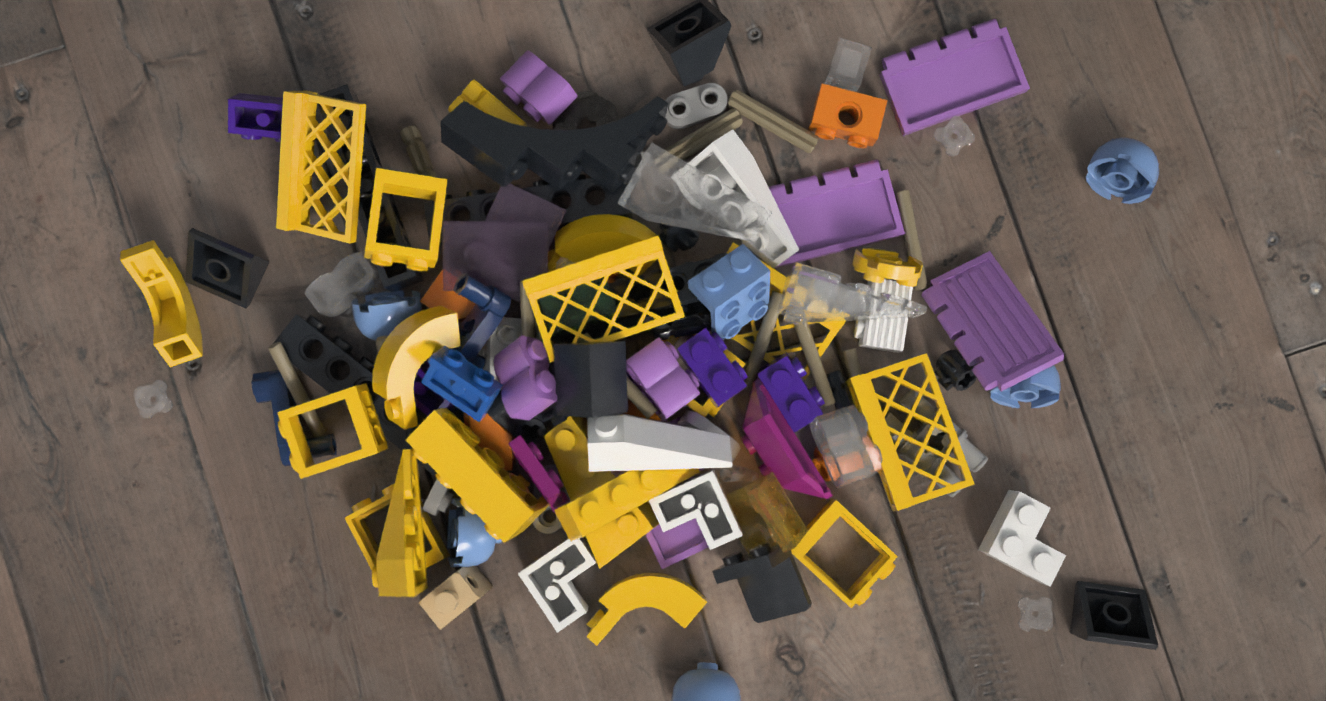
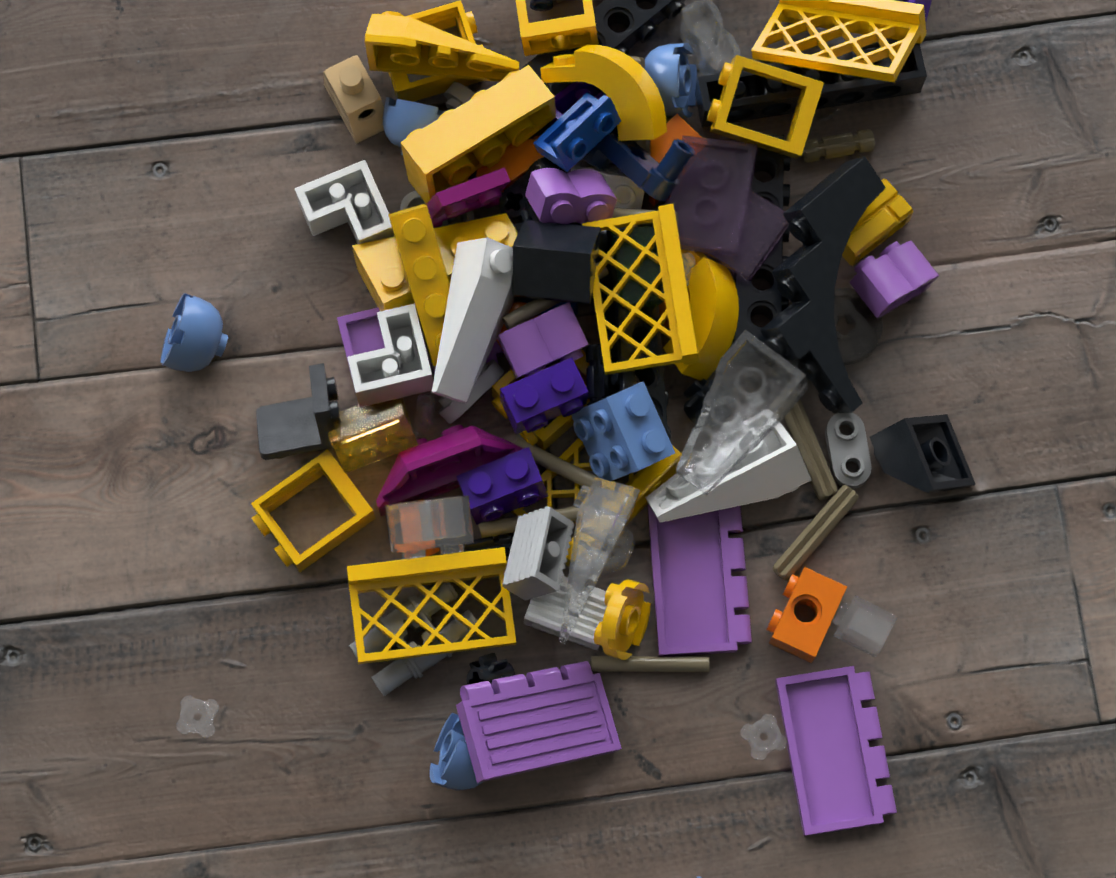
camera: 100 degrees right, 10 degrees down
(646, 590) = (312, 312): yellow arch -> none
(851, 347) = (538, 553): none -> light grey brick
(1014, 542) = (282, 703): white brick -> none
(1112, 615) = (177, 800): black slope -> none

